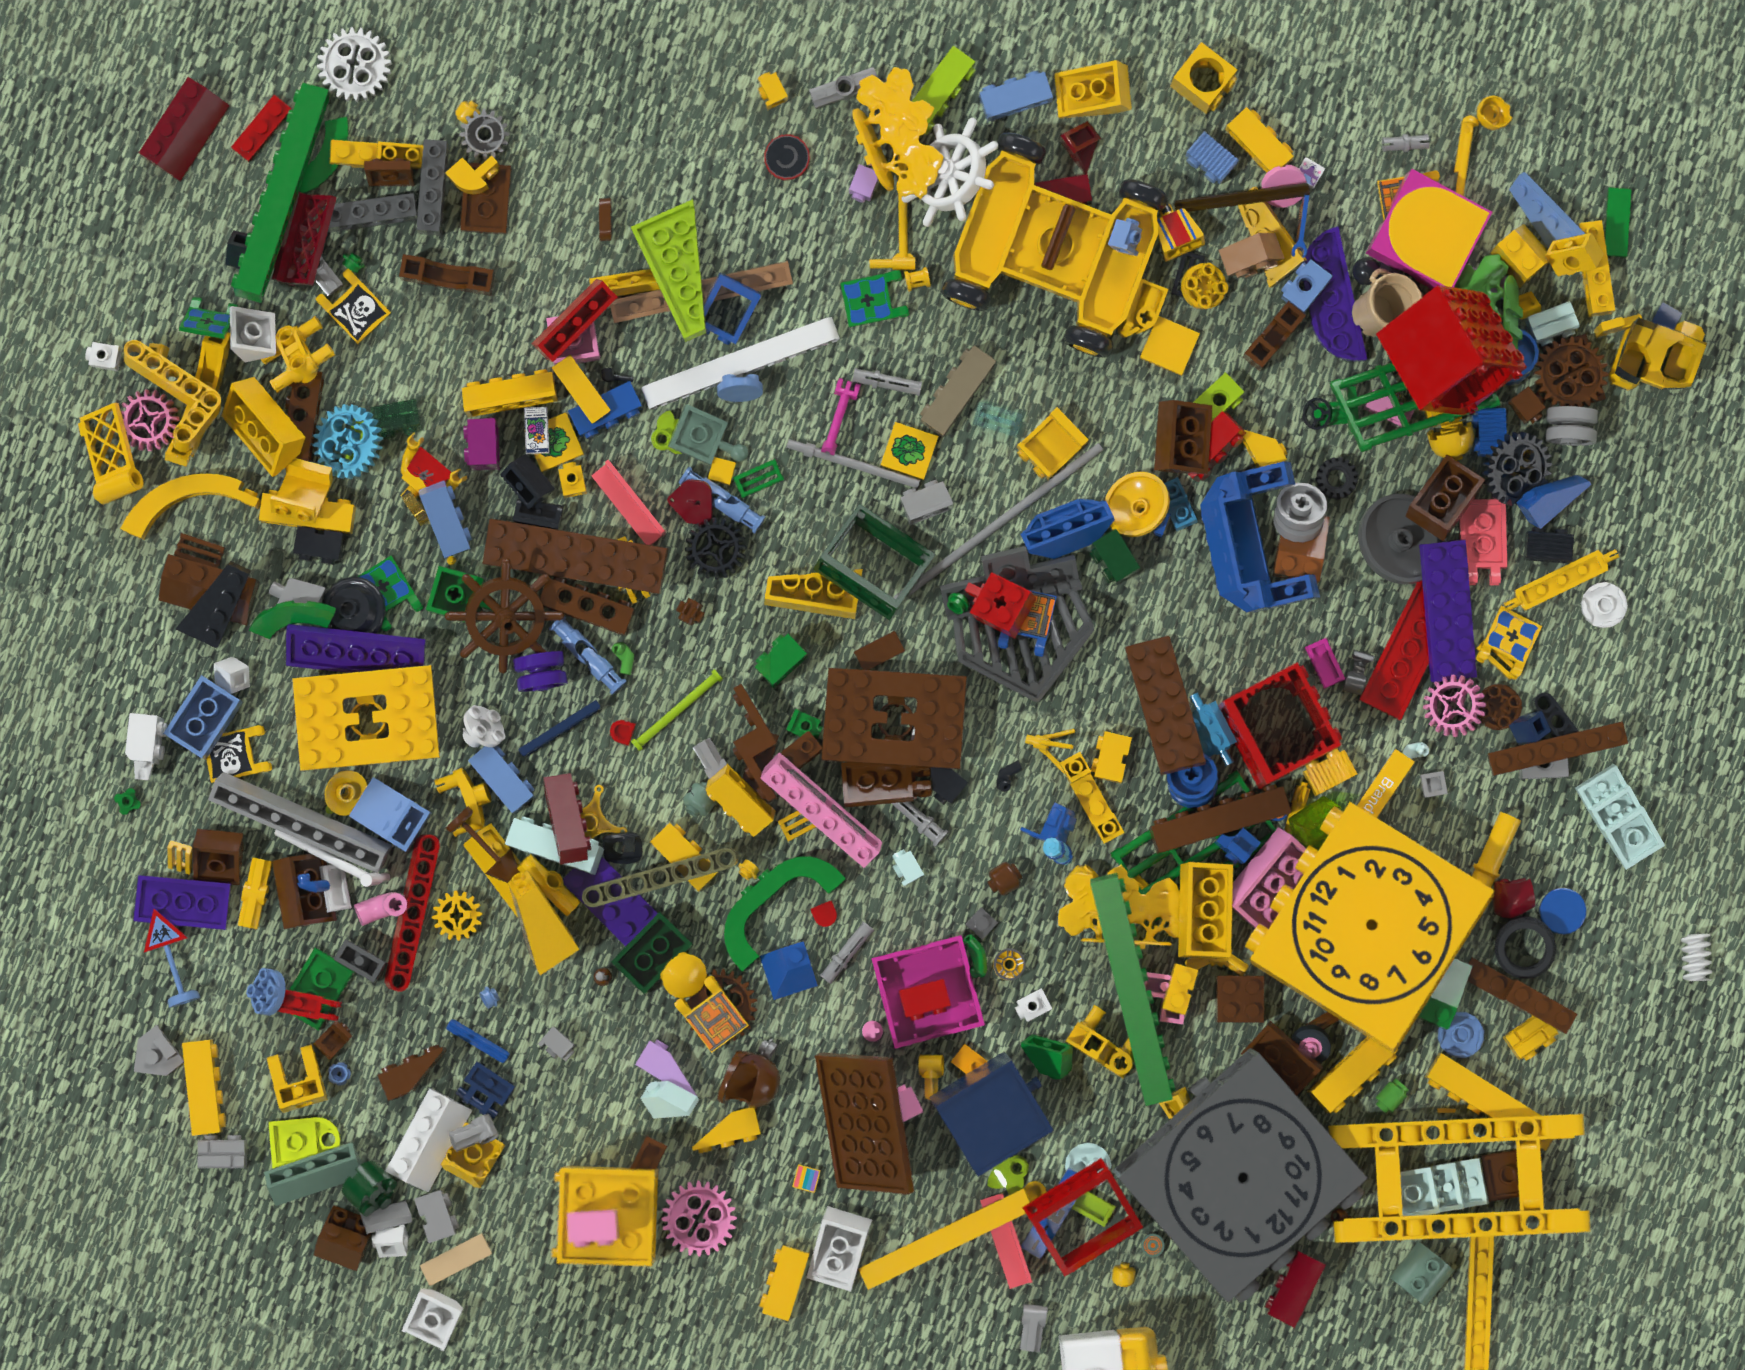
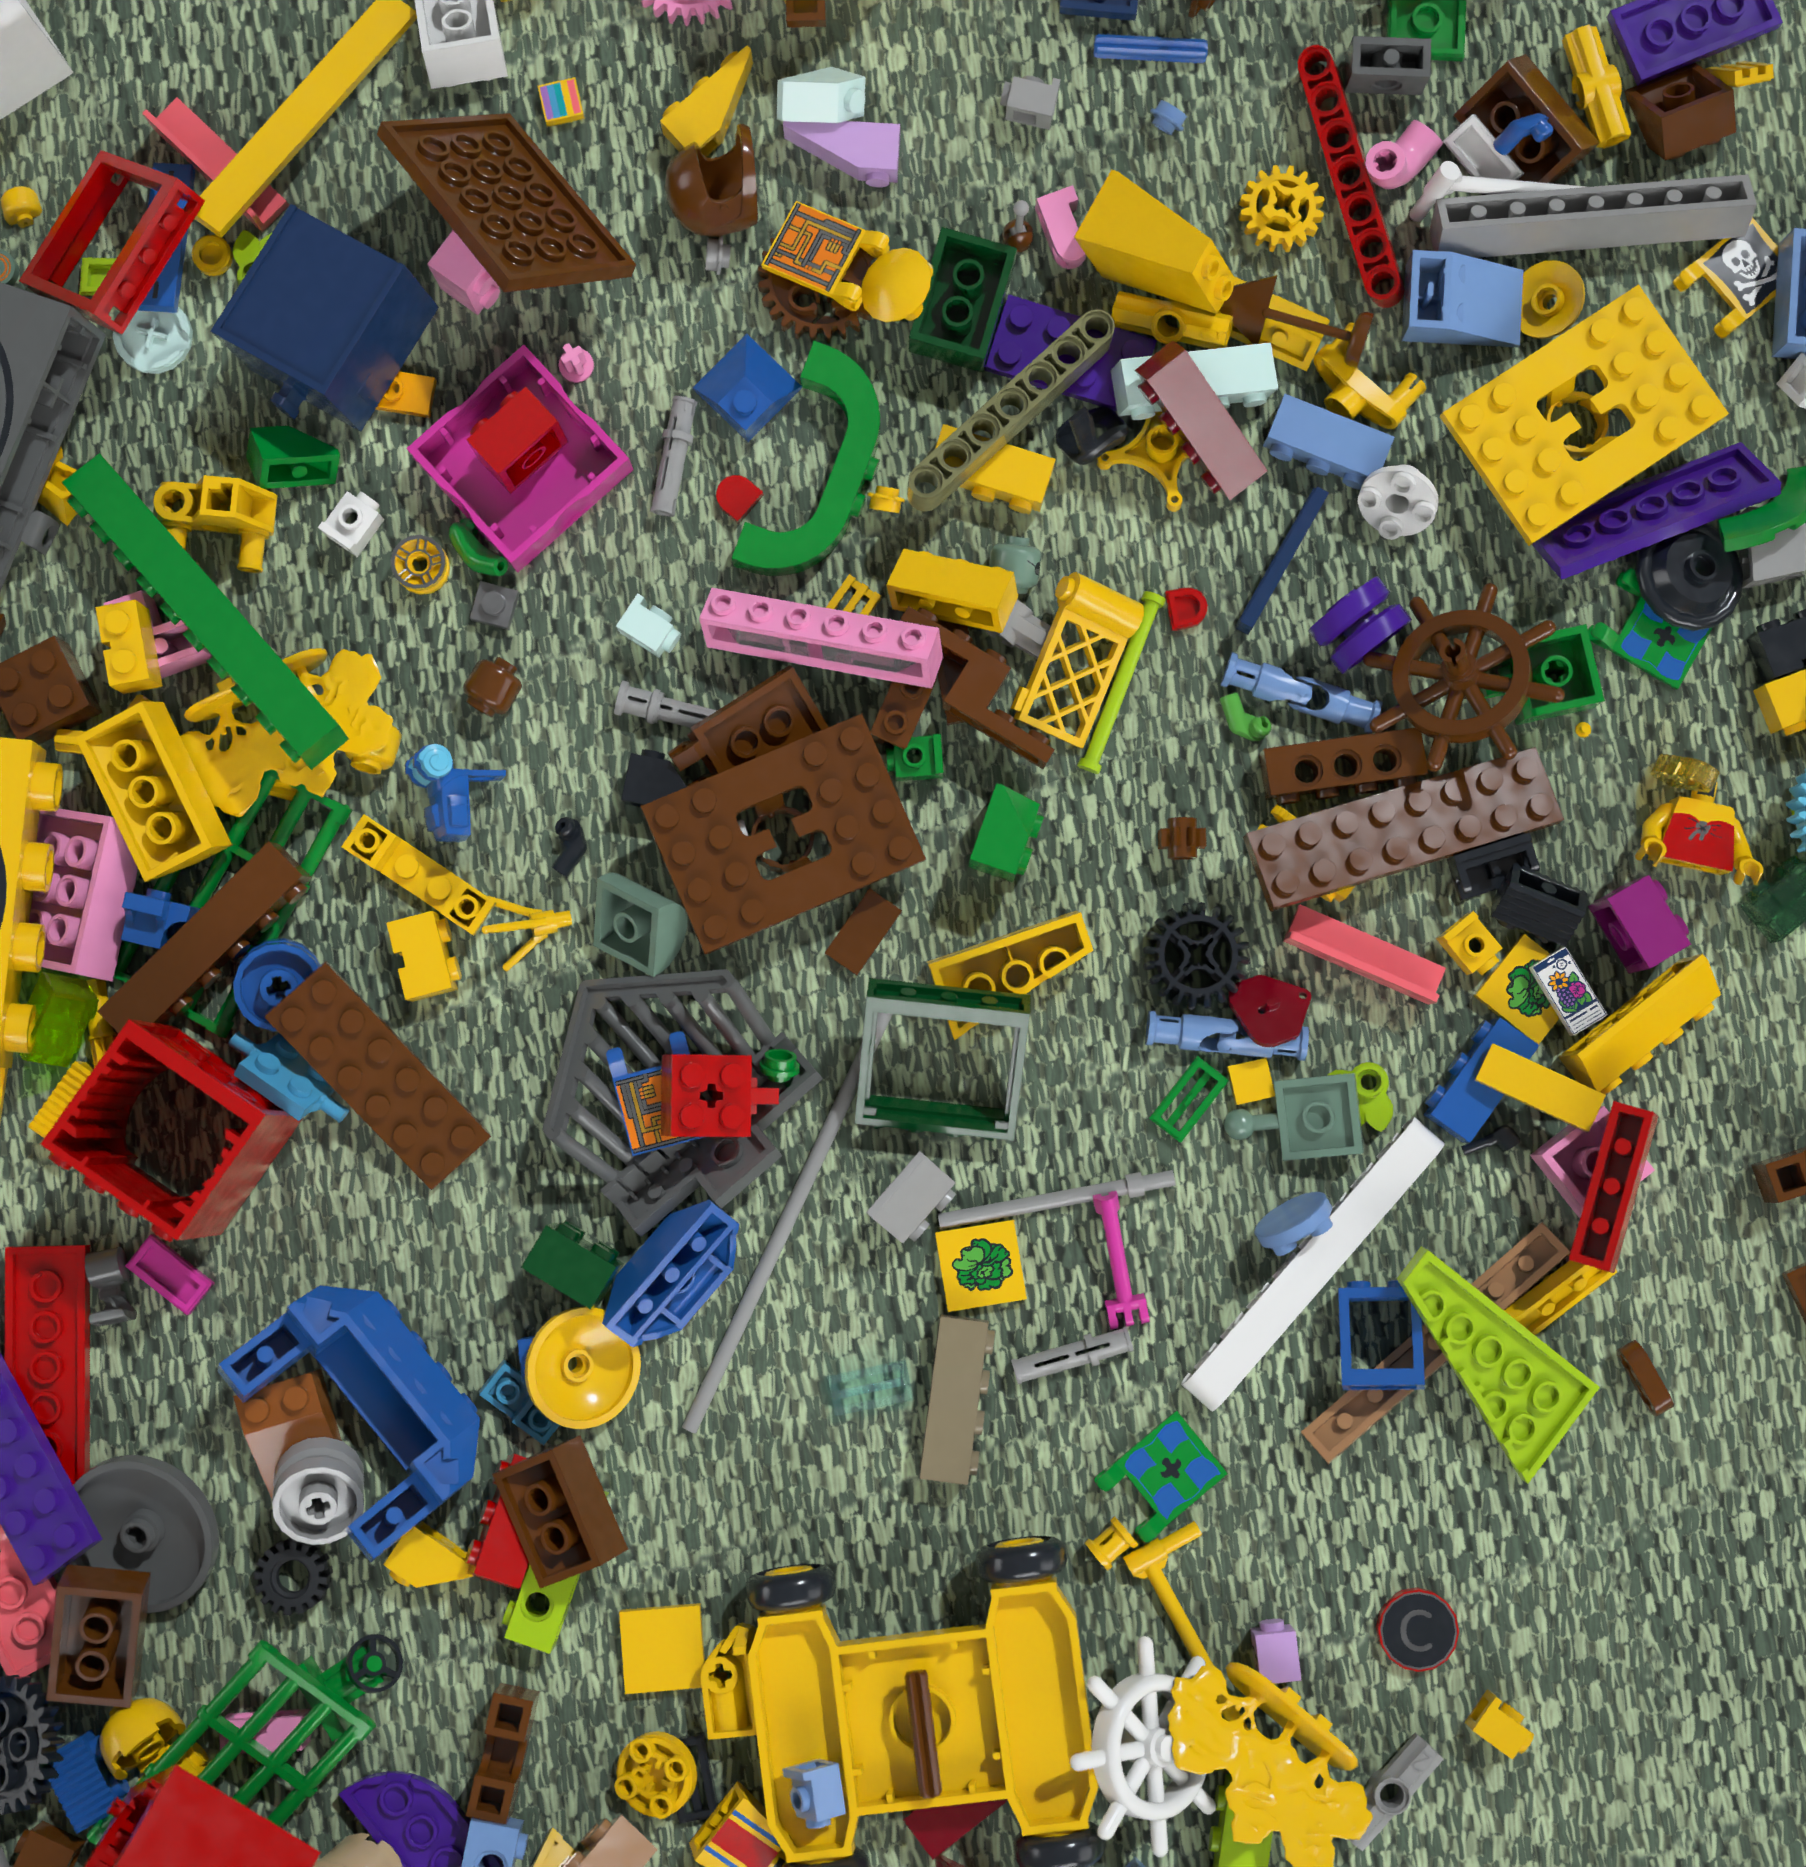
camera: 155 degrees right, 0 degrees up
(445, 518) = (1633, 780): medium blue brick -> none
(578, 967) = (1060, 226): none -> bright pink leg
(674, 754) = (1093, 609): none -> yellow piece
(931, 1068) = (455, 349): yellow axle -> none
(993, 713) = (637, 924): none -> sand green brick
(1033, 1323) = (116, 66): light grey piece -> none
(1052, 444) = (765, 1392): yellow panel -> none

